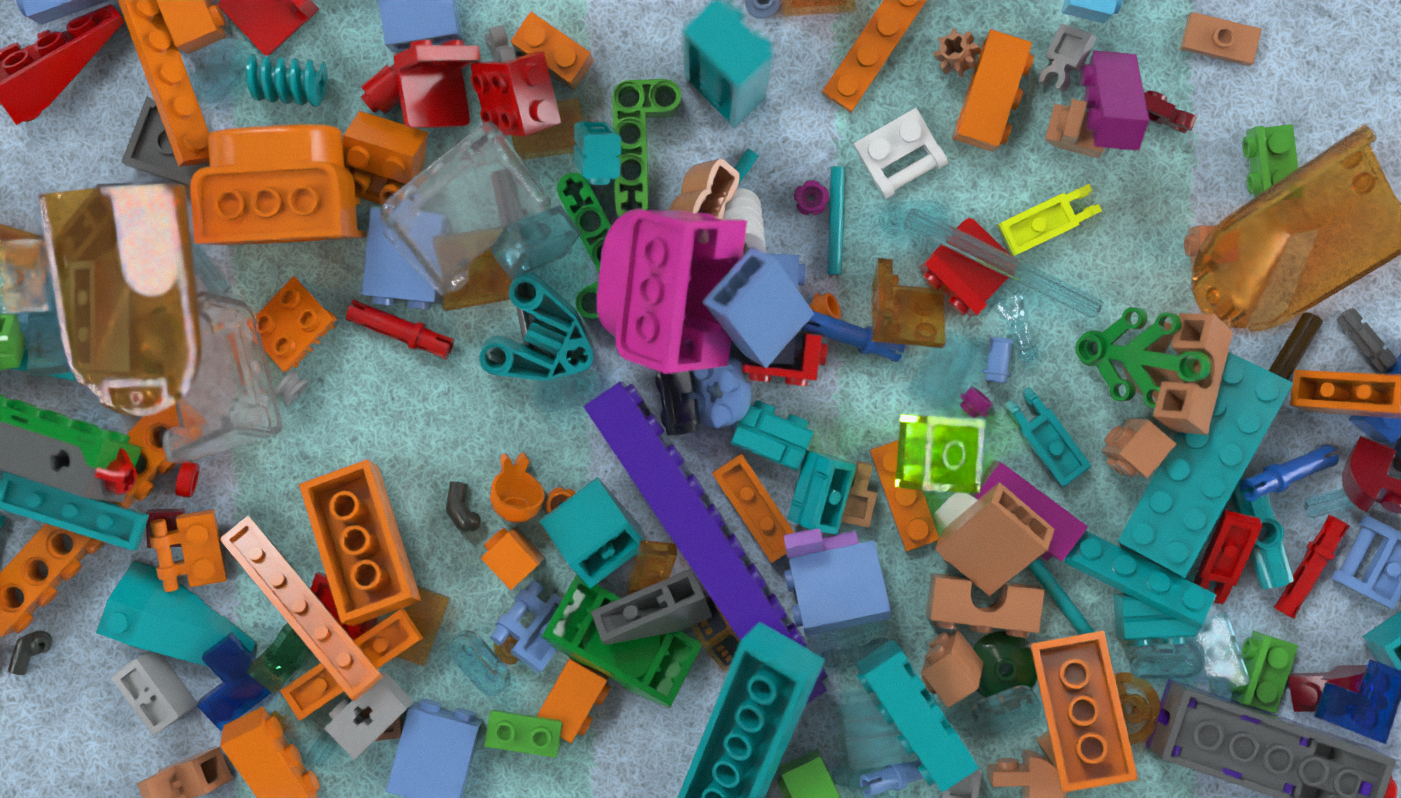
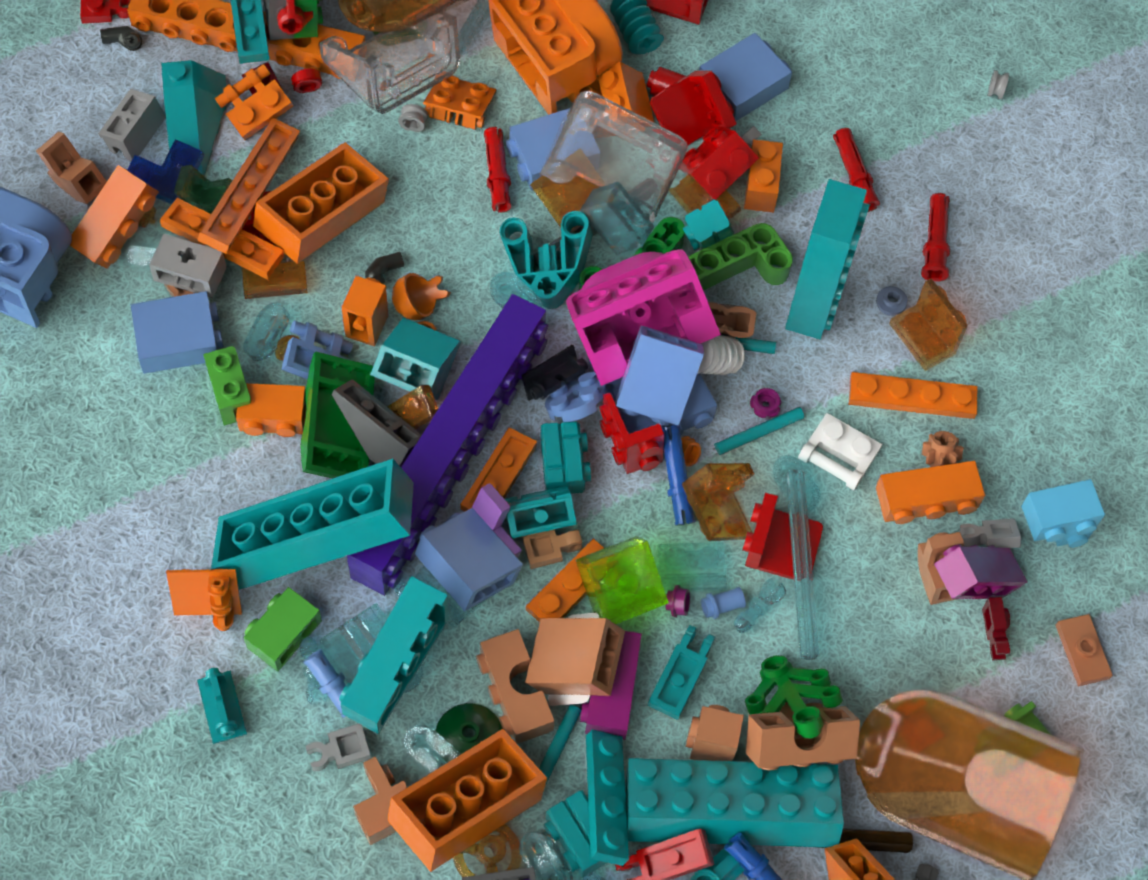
camera: 55 degrees right, 25 degrees down
(951, 667) = (449, 675): nougat brick -> none
(1044, 221) = (857, 585): neon yellow hinge -> none

